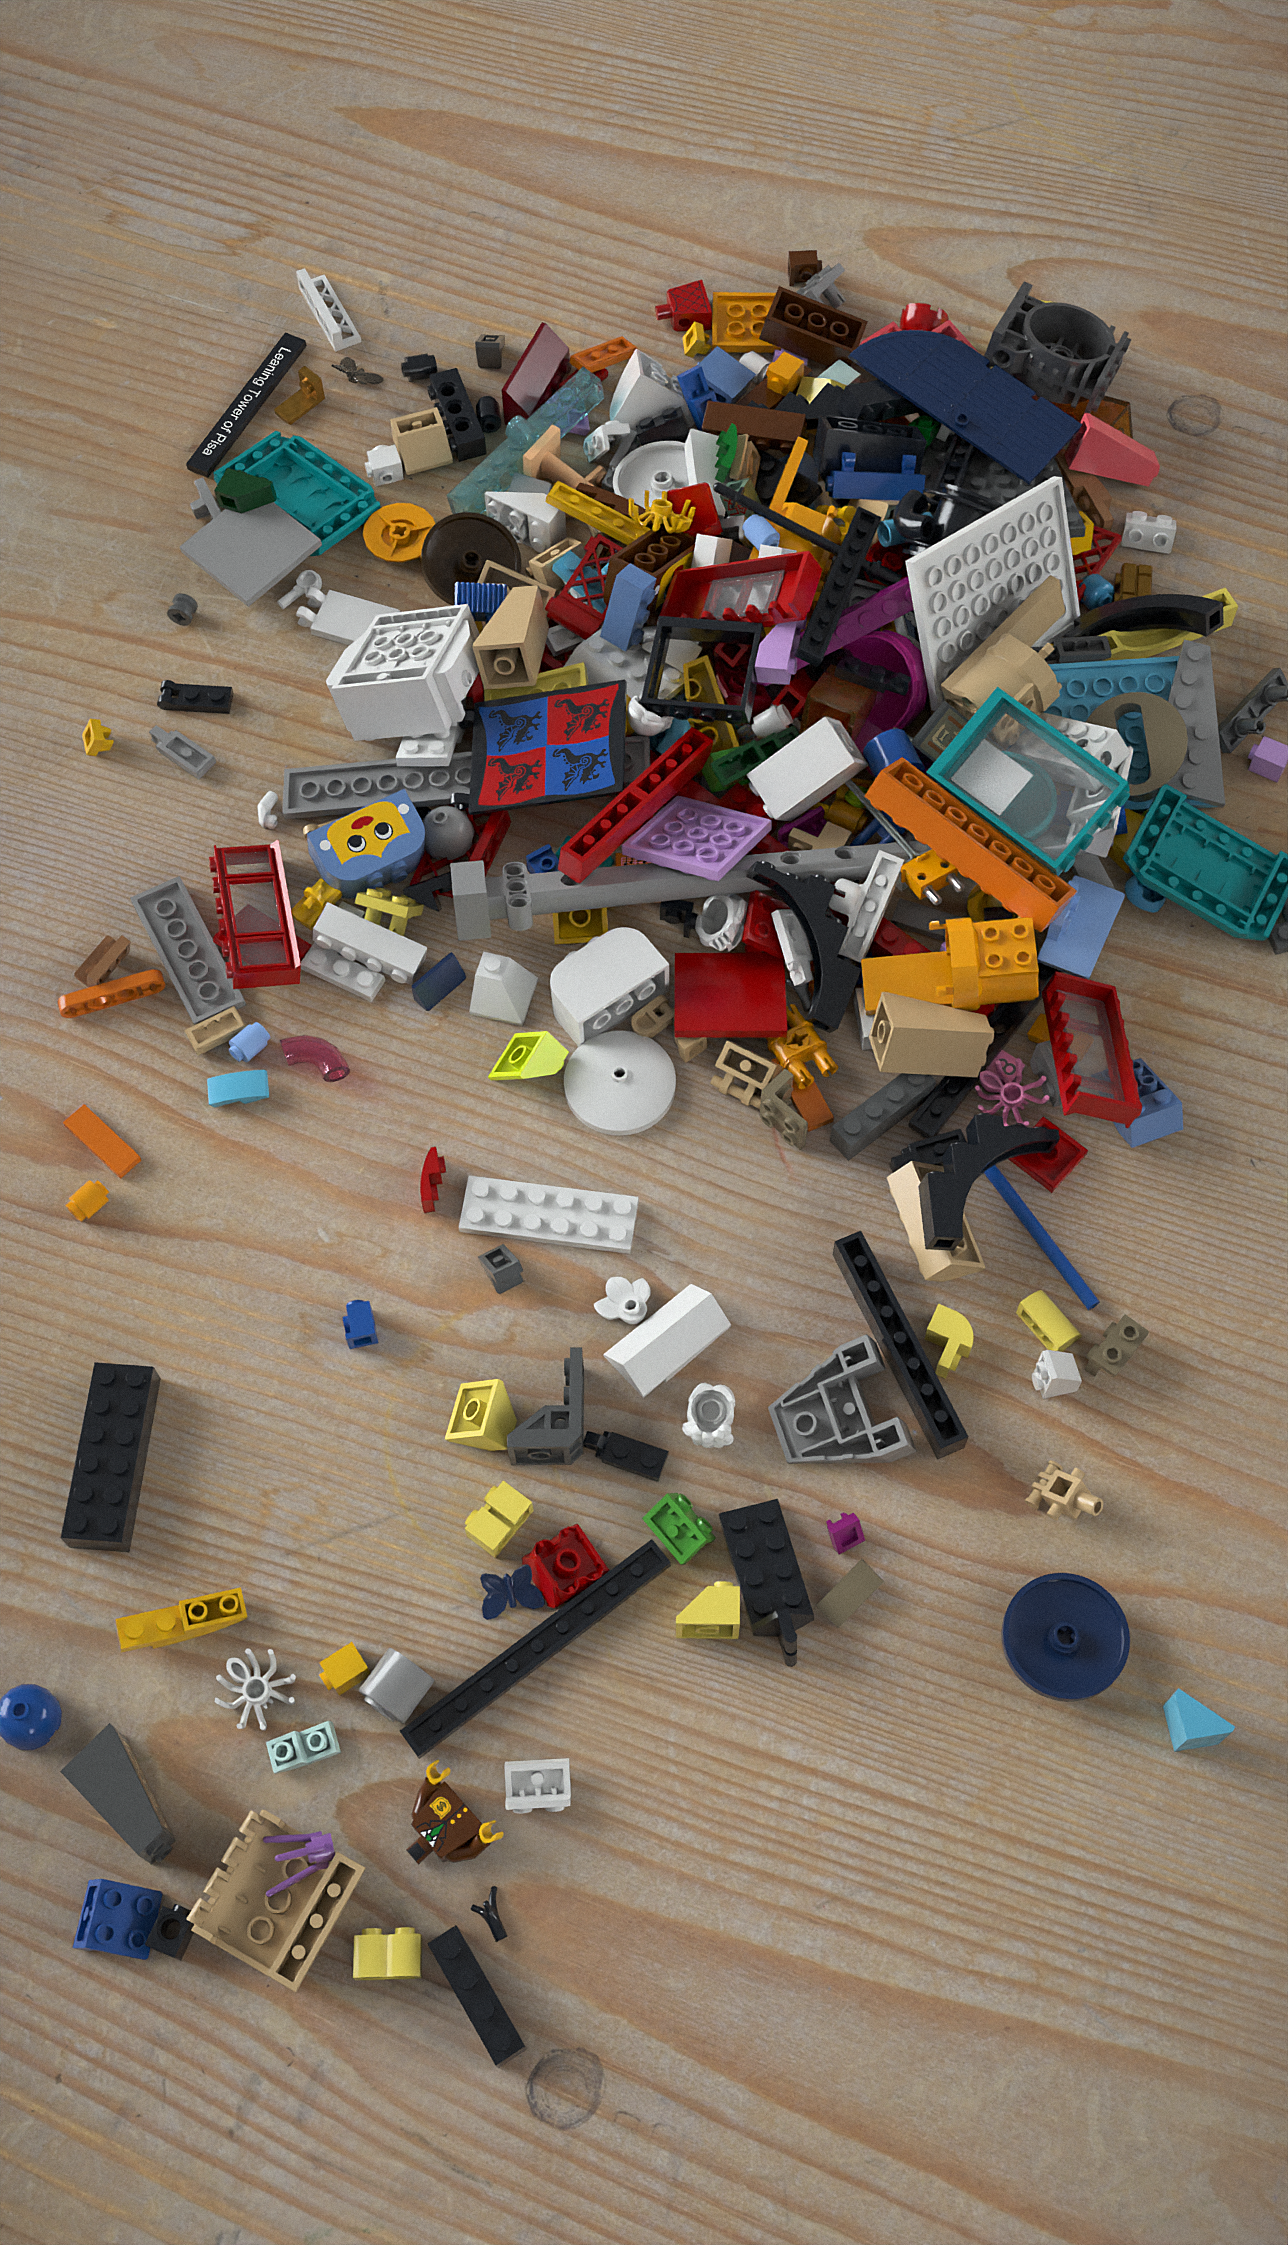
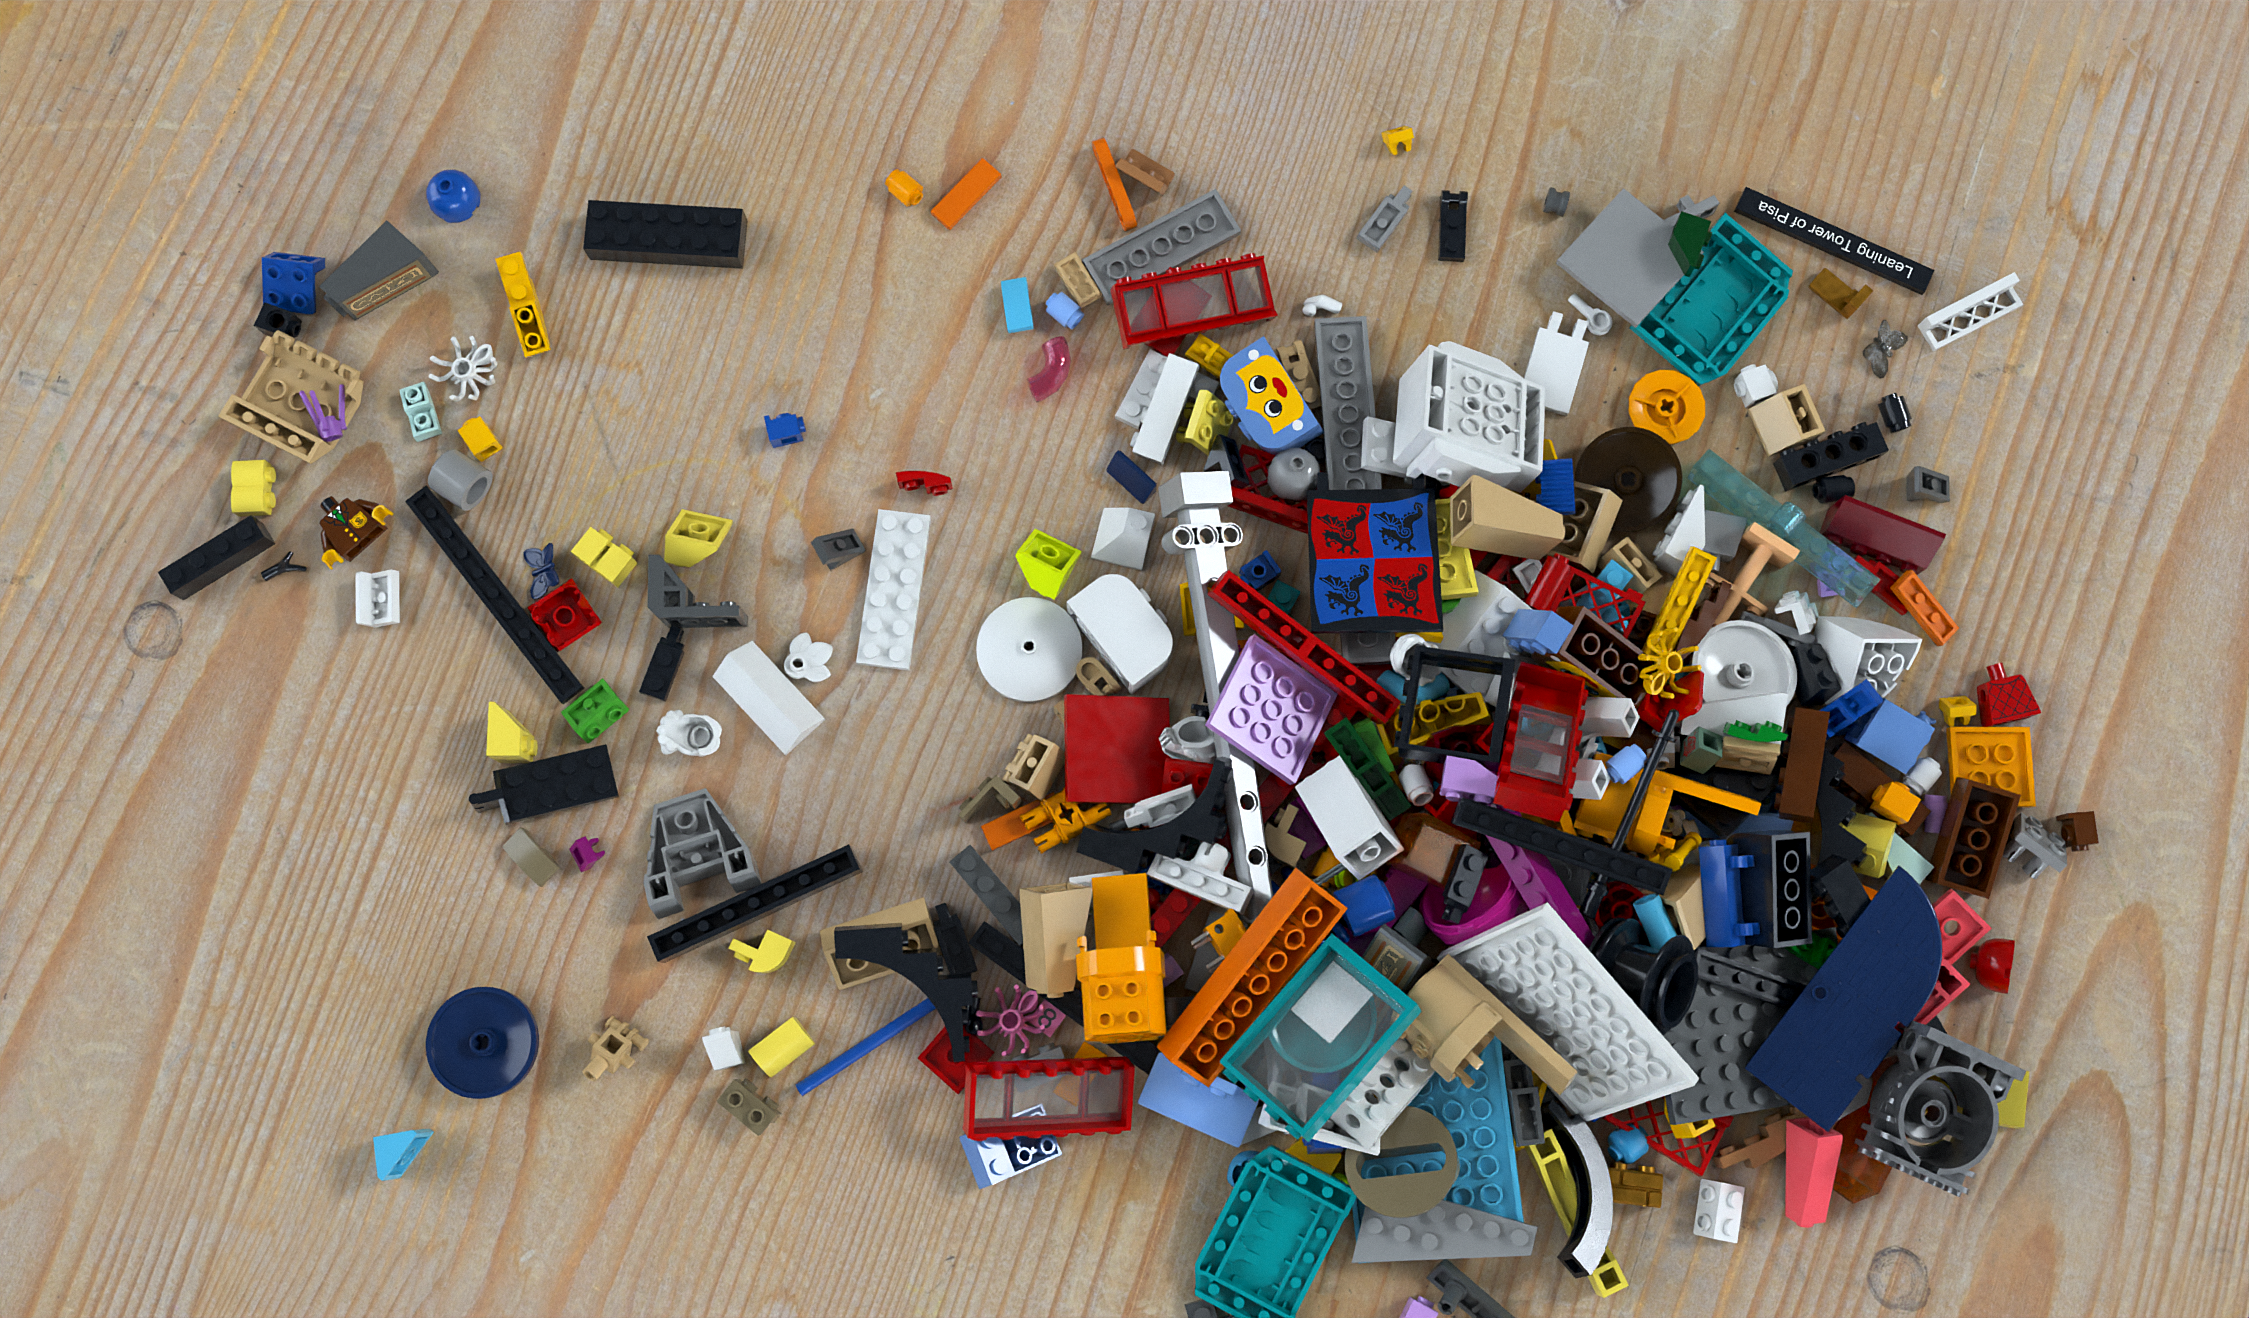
camera: 85 degrees right, 15 degrees up
(909, 518) = (1650, 920): black cylinder -> none

